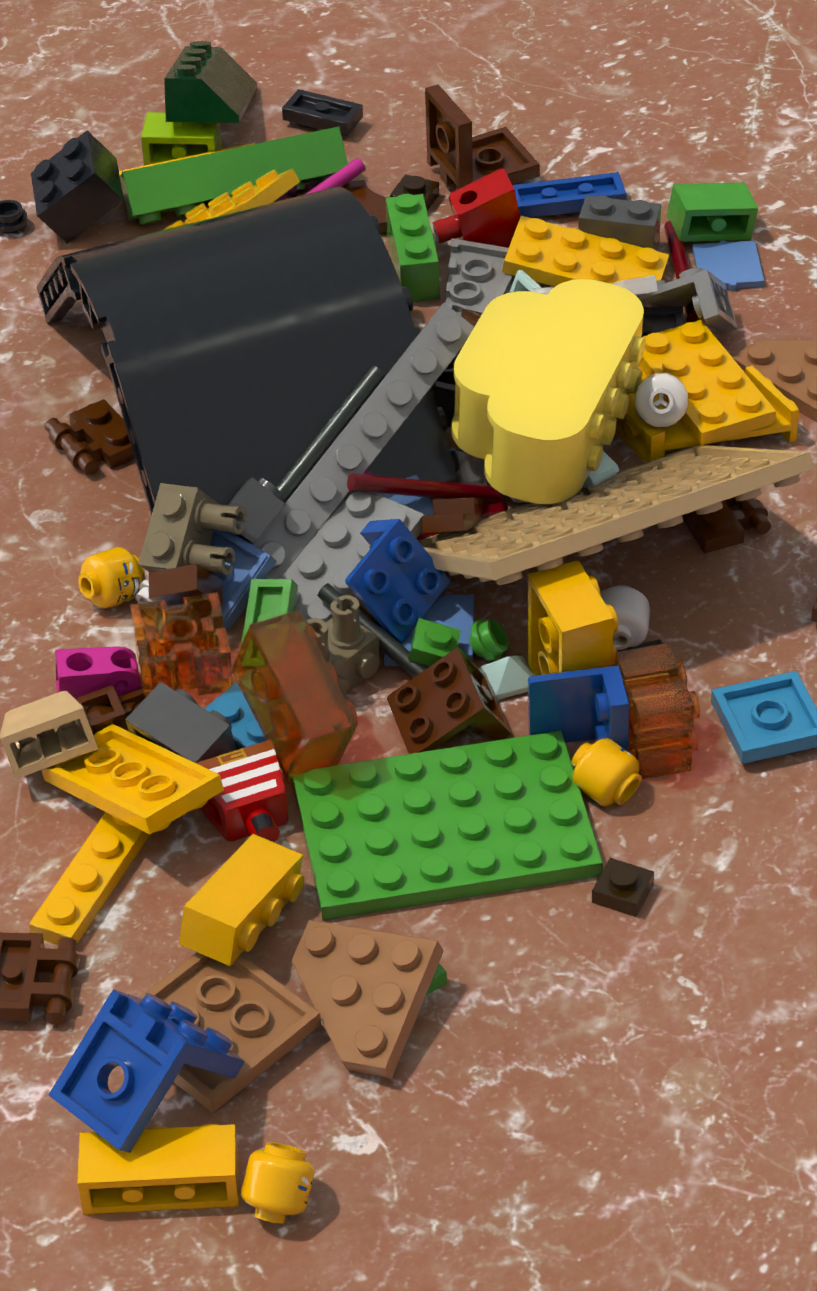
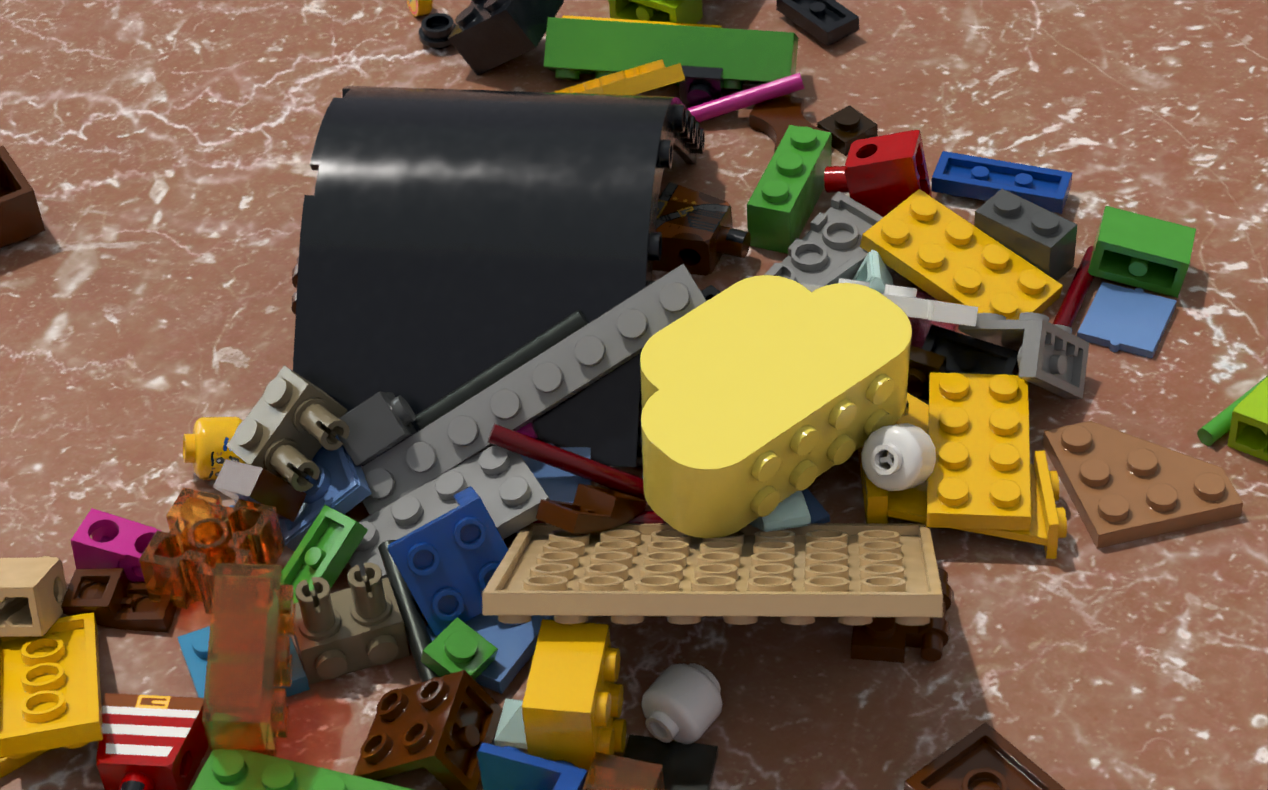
camera: 30 degrees right, 0 degrees up
(181, 725) = (138, 647): dark grey brick -> none
(466, 157) = (925, 106): reddish brown bracket -> none
(488, 639) = (515, 665): bright green plate -> none

